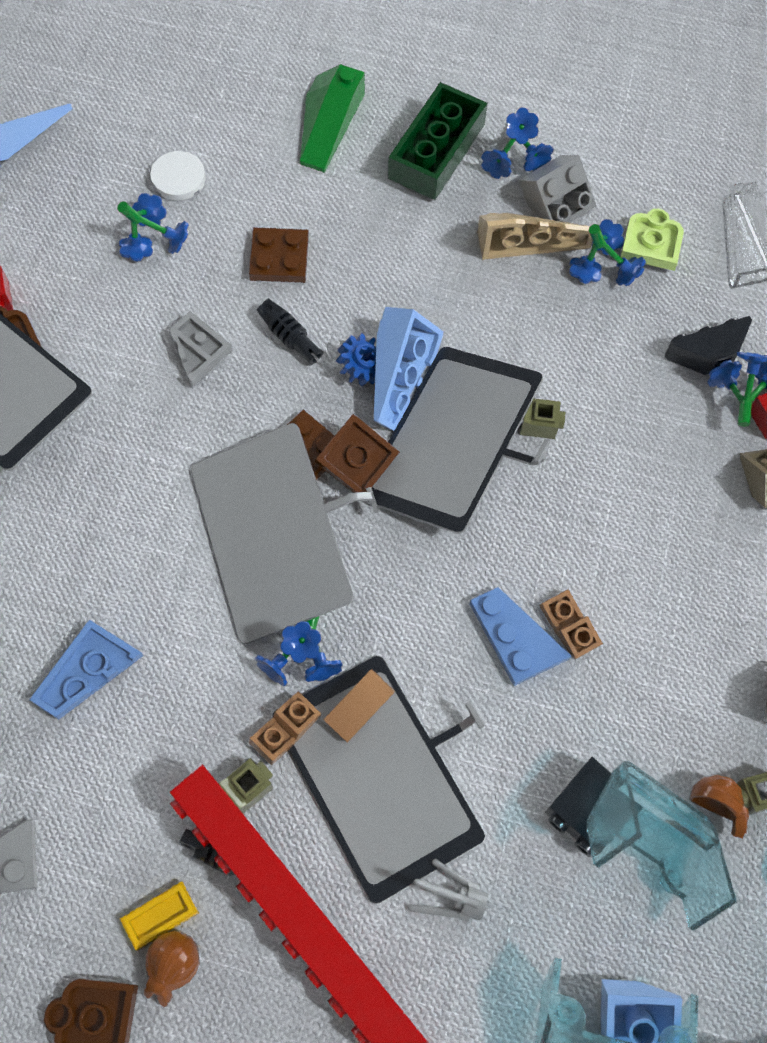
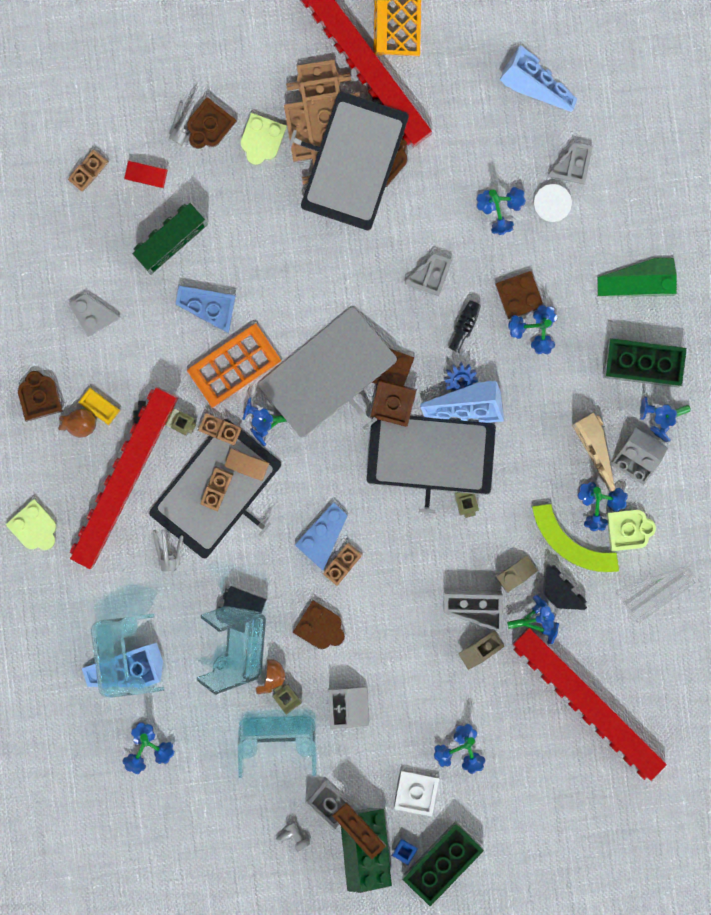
camera: 75 degrees right, 20 degrees up
(141, 133) = (574, 164): none -> light grey wing
(207, 725) = (205, 387): none -> orange piece
(324, 234) = (544, 319): none -> blue plant
(379, 770) = (216, 489): none -> medium nougat slope
(648, 321) = (569, 549): none -> lime tile
(658, 696) = (320, 627): none -> reddish brown plate
(670, 395) = (516, 574): none -> dark tan slope
(701, 456) = (475, 606): none -> light grey wedge

